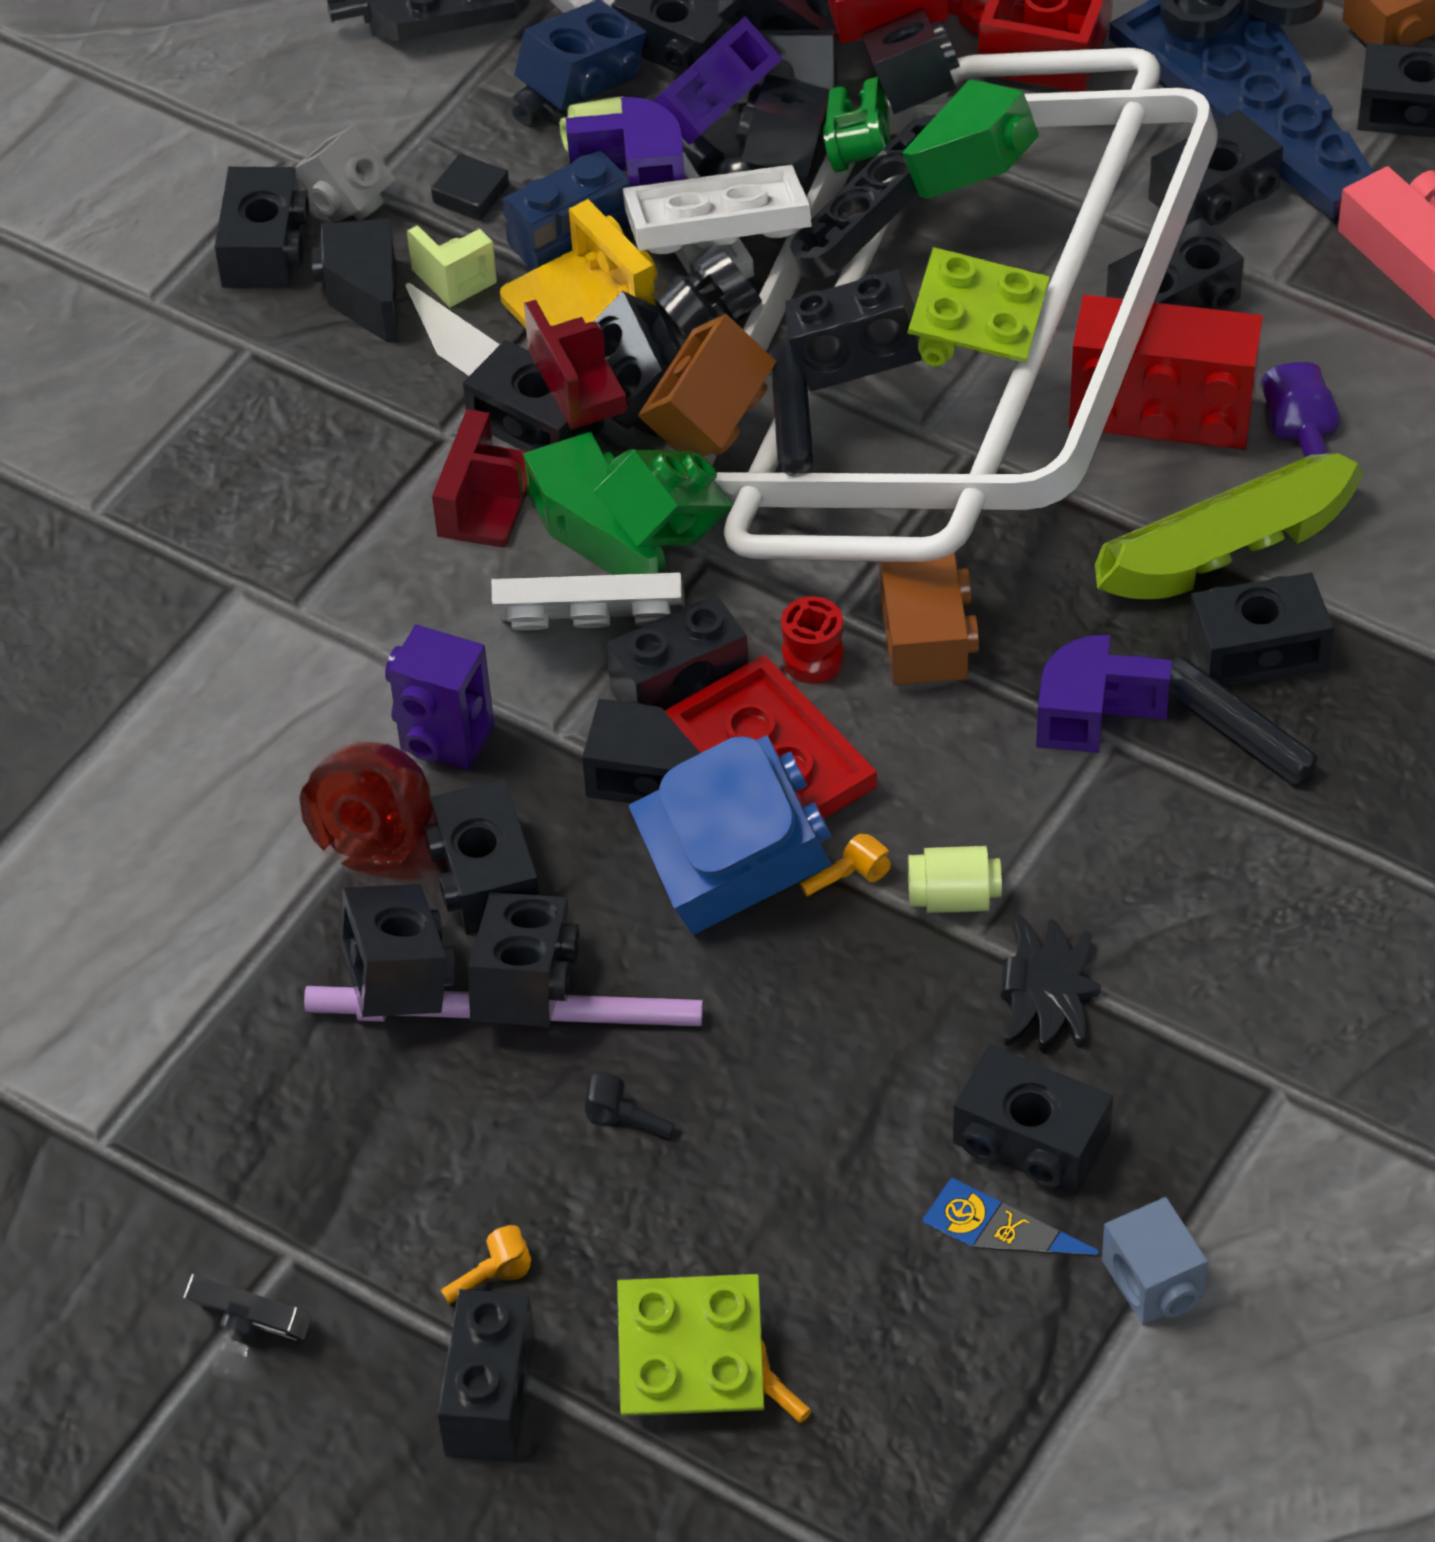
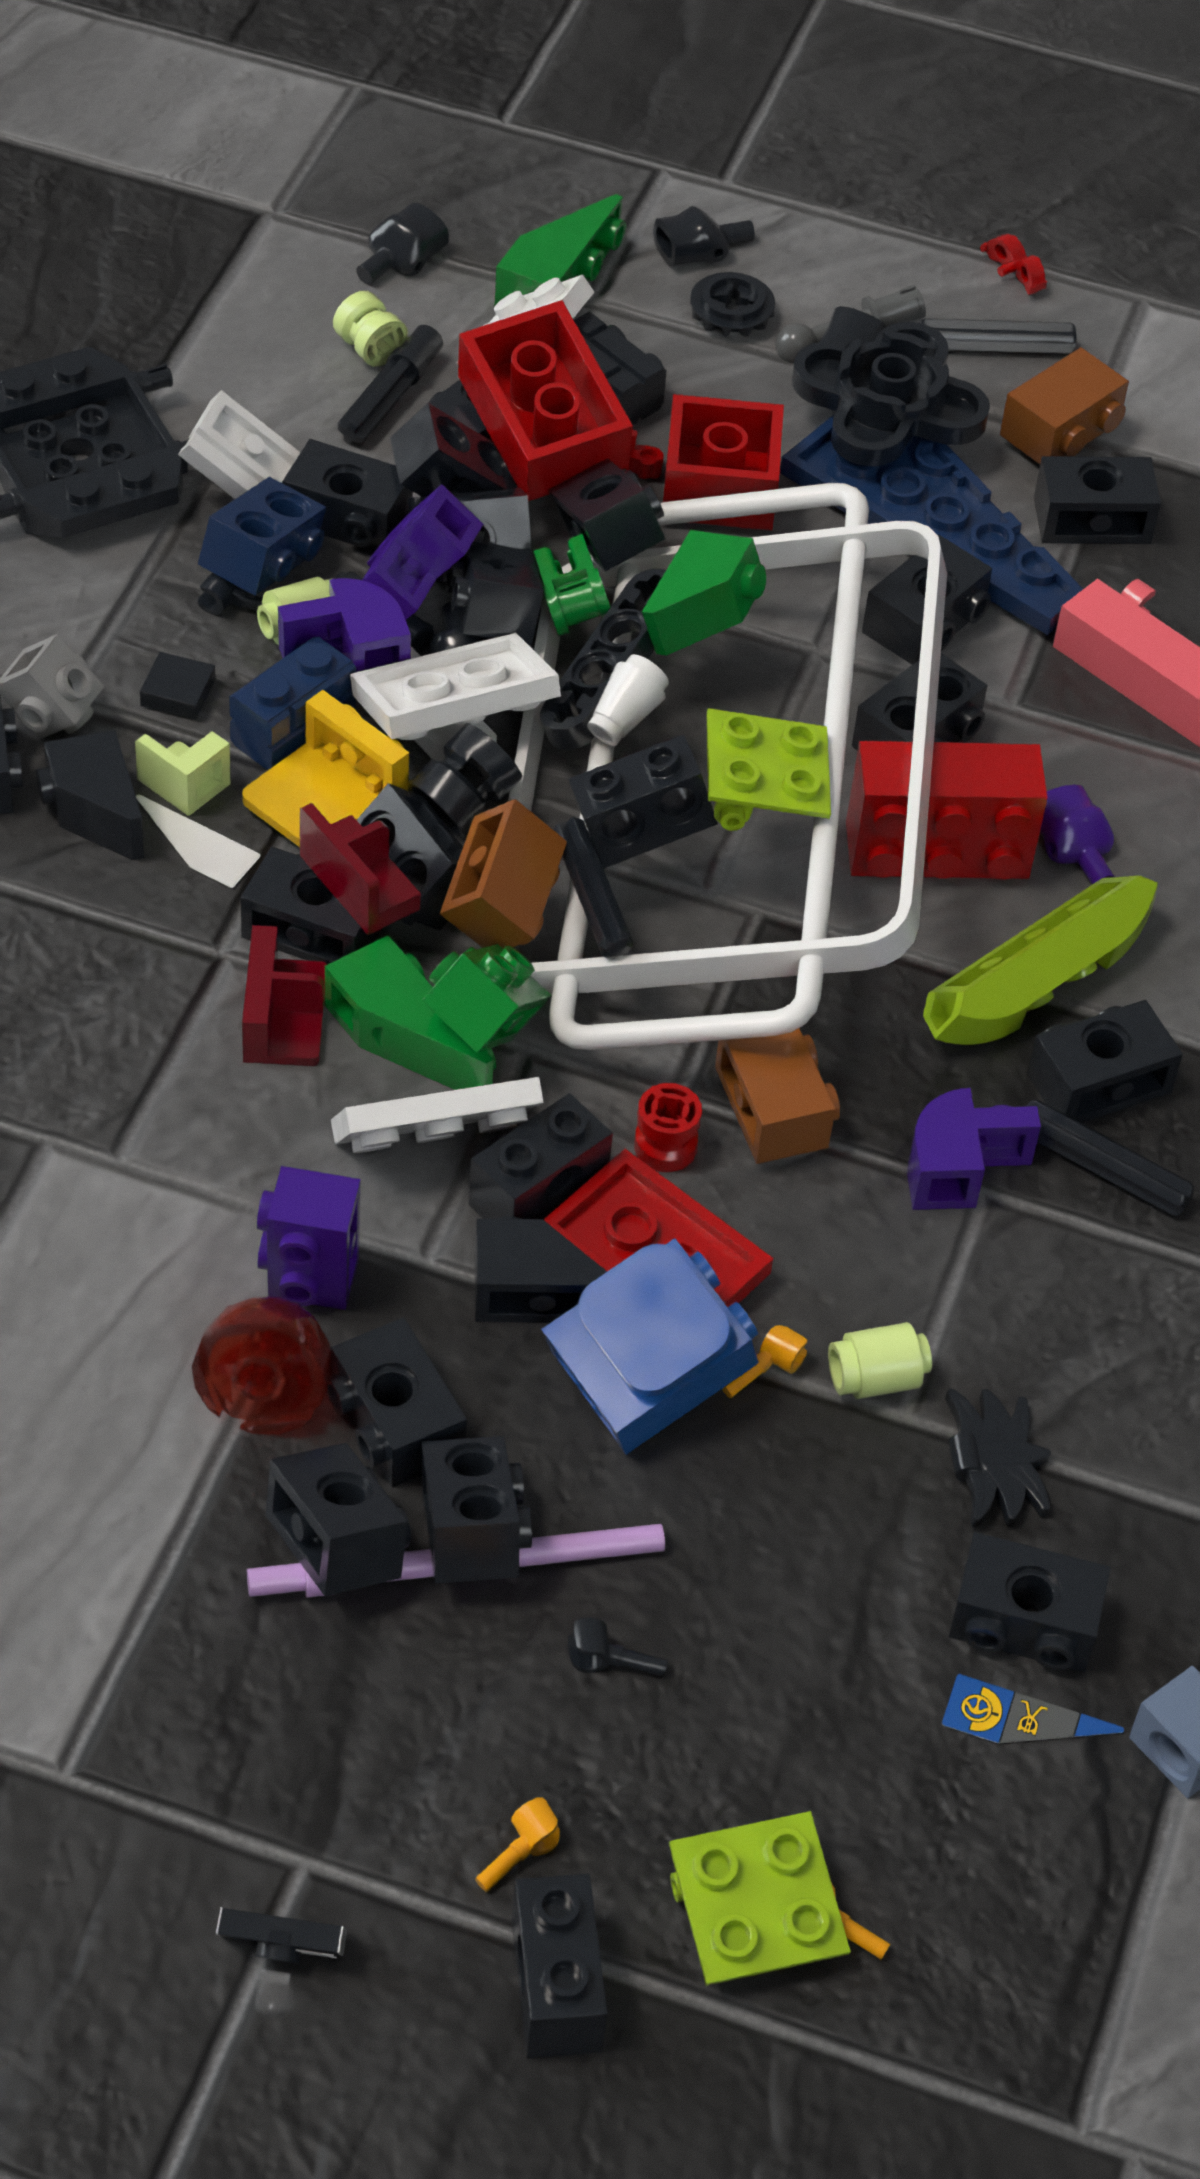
camera: 20 degrees left, 0 degrees up
(875, 233) = (628, 698): none -> white cone

